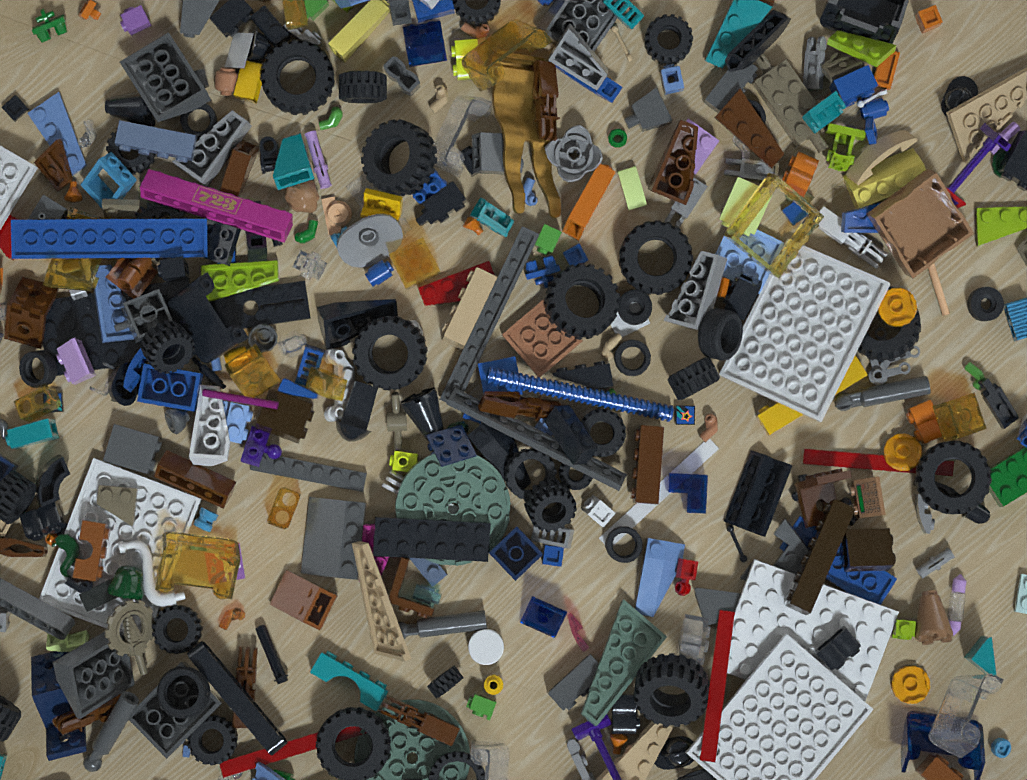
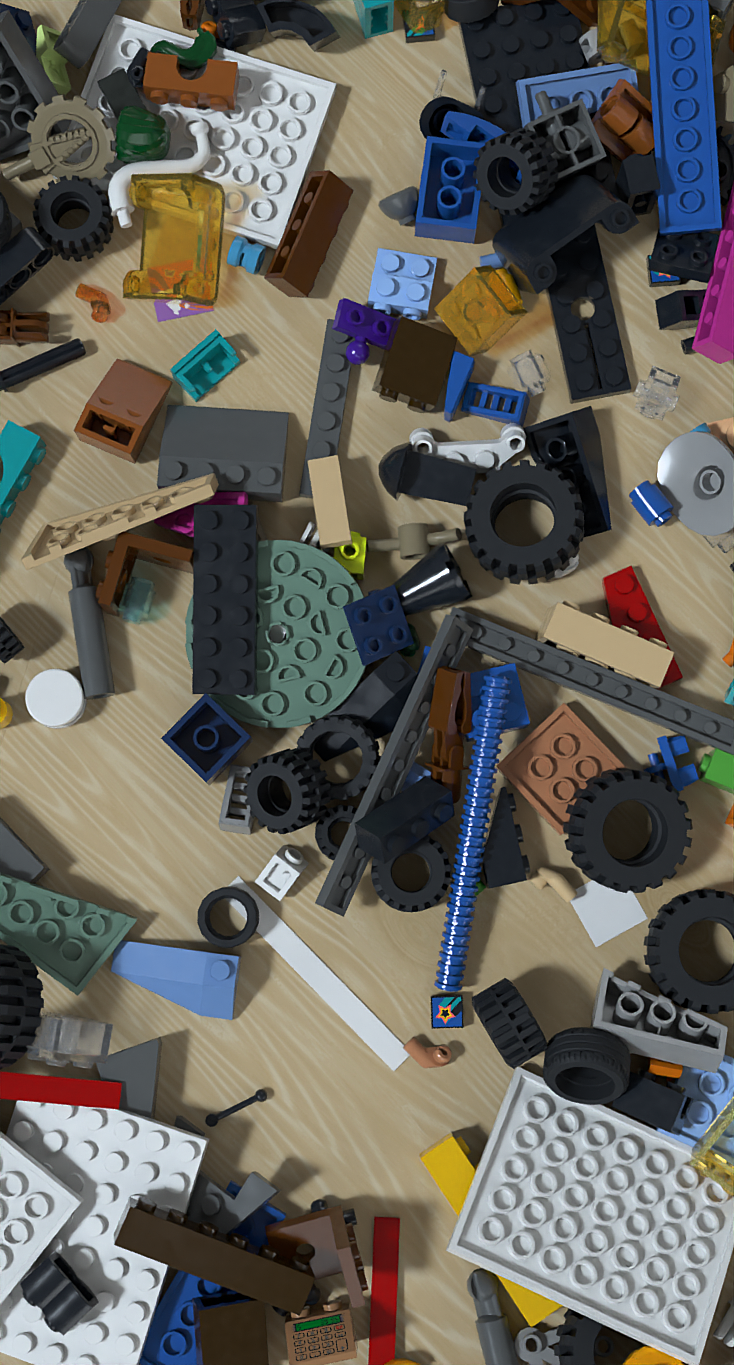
camera: 90 degrees right, 5 degrees down
(75, 361) = (485, 45): lavender slope -> none
(118, 501) = (269, 122): dark tan wing -> none
(132, 449) = (352, 140): dark grey brick -> none
(210, 433) = (383, 248): white wedge -> none
(212, 377) = (474, 251): black hand -> none
(240, 277) = (625, 272): lime wing -> none
(240, 399) = (438, 292): magenta bar -> none
(264, 336) = (538, 327): dark grey hair -> none
(277, 548) = (205, 365): none -> teal hinge
(289, 509) = (267, 358): clear yellow piece -> none
(308, 234) = (704, 391): green arm -> none
(326, 383) = (469, 424): clear yellow piece -> none
(371, 472) = (329, 502): none -> tan tile
(414, 263) = (670, 556): clear yellow brick -> none
(431, 571) = (174, 607): sand blue plate -> none
(543, 616) = (108, 790): clear blue slope -> none
(553, 555) = (206, 801): blue tile -> none
(575, 255) = (702, 818): blue tile -> none
(575, 626) = (90, 841): clear pink slope -> none
(632, 372) = (560, 913): black tyre -> none
(645, 304) = (639, 920): black tyre -> none
(648, 464) = (360, 952): reddish brown brick -> none
(687, 571) = (187, 1023): red plate -> none
(693, 486) = (324, 1033): clear blue brick -> none
(758, 493) = (321, 1141): black slope -> none

